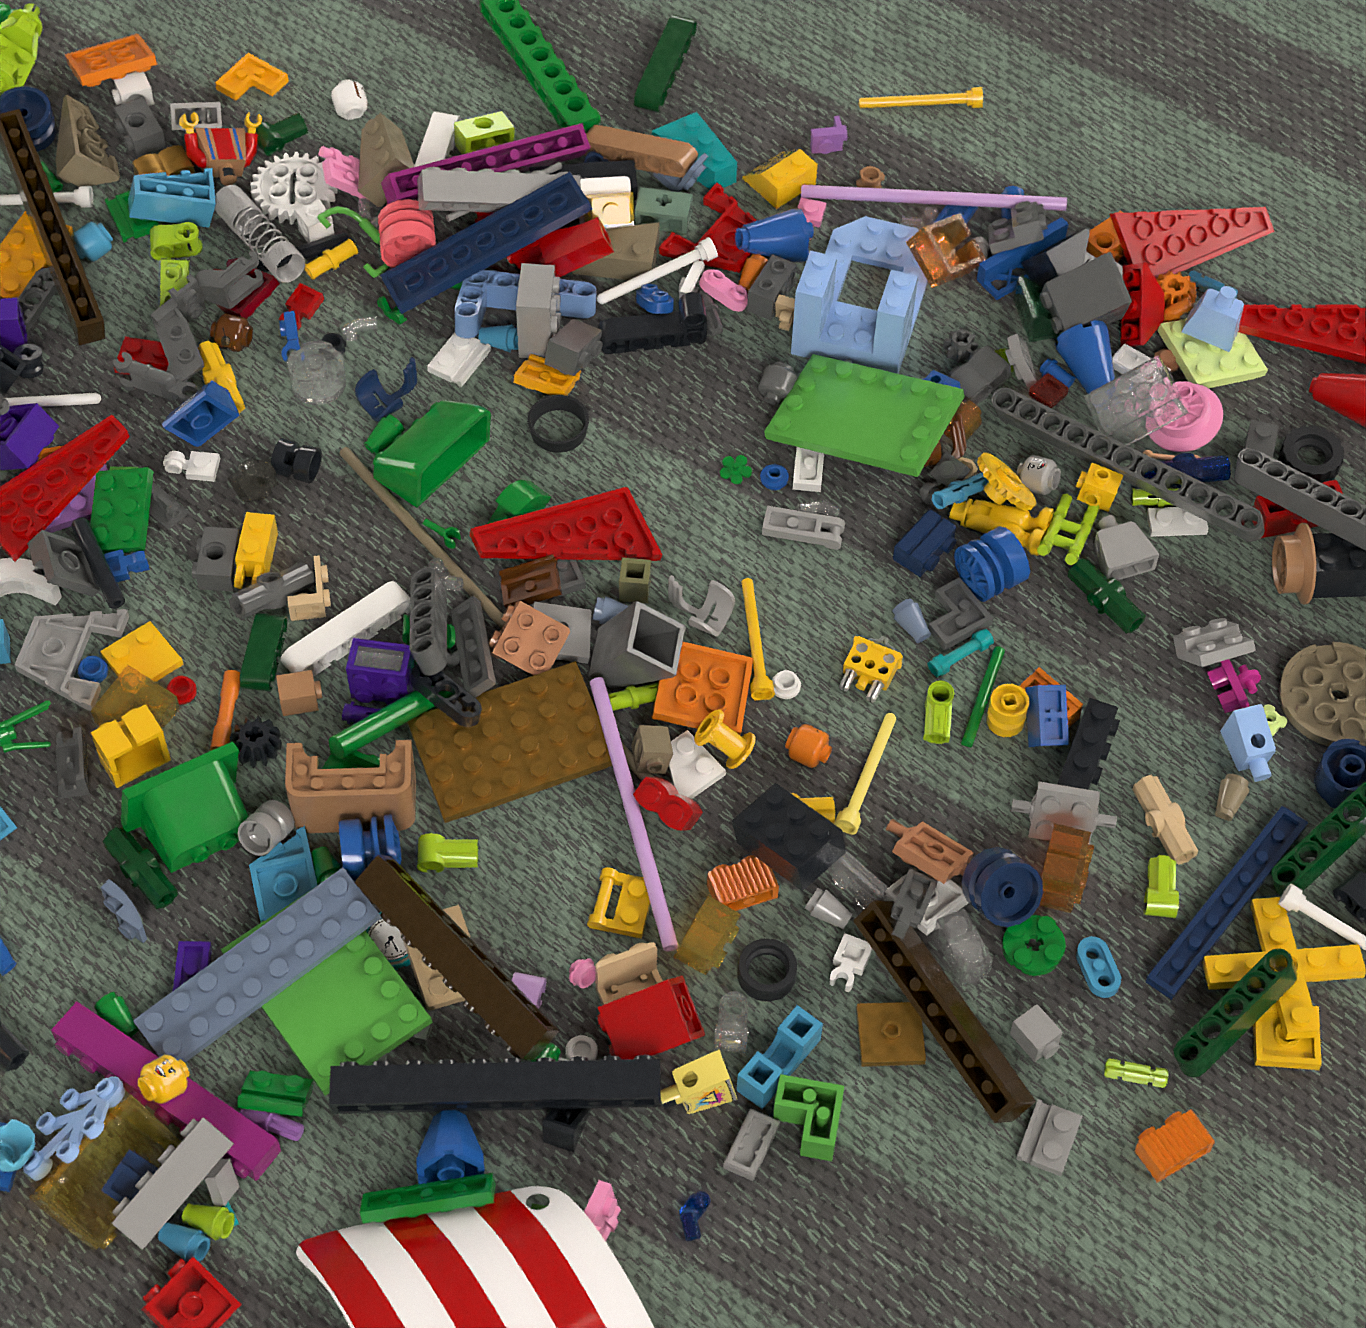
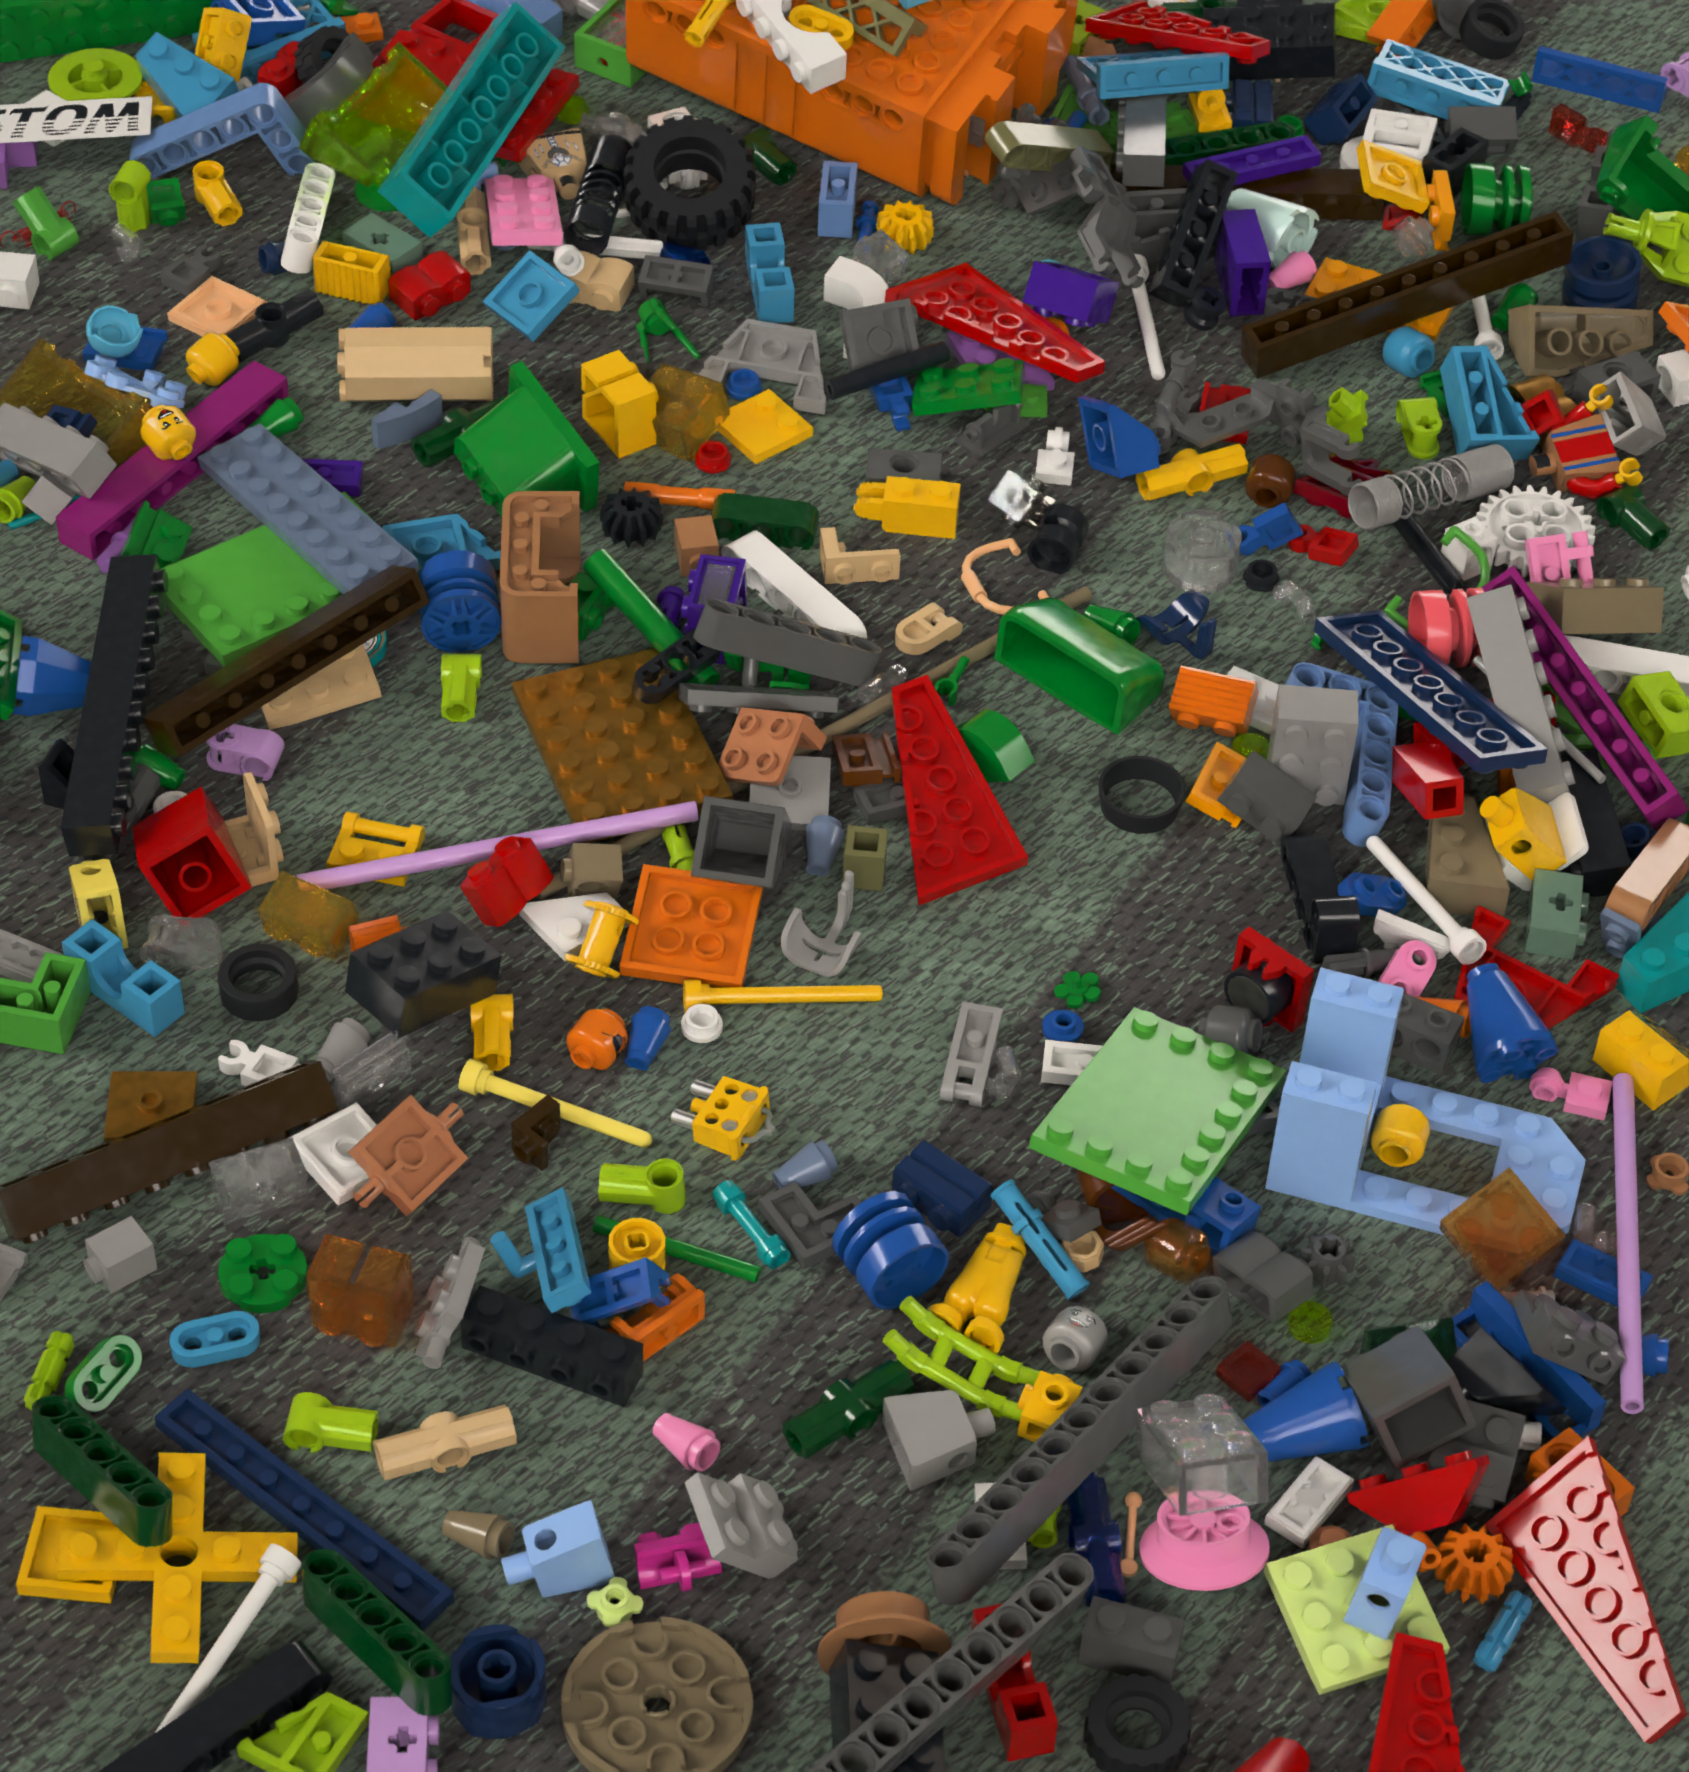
camera: 90 degrees right, 10 degrees down
(35, 1071) = (212, 359): none -> yellow head
(67, 900) = (413, 360): none -> tan brick
(182, 160) = (1543, 412): none -> red slope
(266, 827) = (487, 513): light grey wheel -> none
(271, 590) = (844, 511): dark grey piece -> none
(331, 259) = (1410, 569): yellow pin -> none
(335, 519) = (974, 585): none -> light nougat piece
(392, 554) = (926, 630): none -> tan plate
(473, 373) = (1213, 701): none -> orange brick
(508, 361) = (1247, 742): none -> clear neon green plate
(582, 973) = (283, 804): bright pink plate -> none
(745, 355) = (1268, 981): none -> piece
(800, 713) = (646, 1036): none -> blue cone
(860, 295) = (1400, 1135): none -> yellow head
(896, 780) = (534, 1131): none -> dark brown bracket
(912, 901) = (316, 1106): dark grey hinge -> none
(1002, 887) = (331, 1200): dark blue wheel -> none
(1004, 483) = (1061, 1277): yellow gear -> none
(1014, 753) = (555, 1252): none -> dark azure plate
(1020, 358) = (1299, 1324): light grey wing -> none
(1130, 1029) = (100, 1376): none -> green plate
(1144, 682) = (687, 1442): none -> bright pink cone

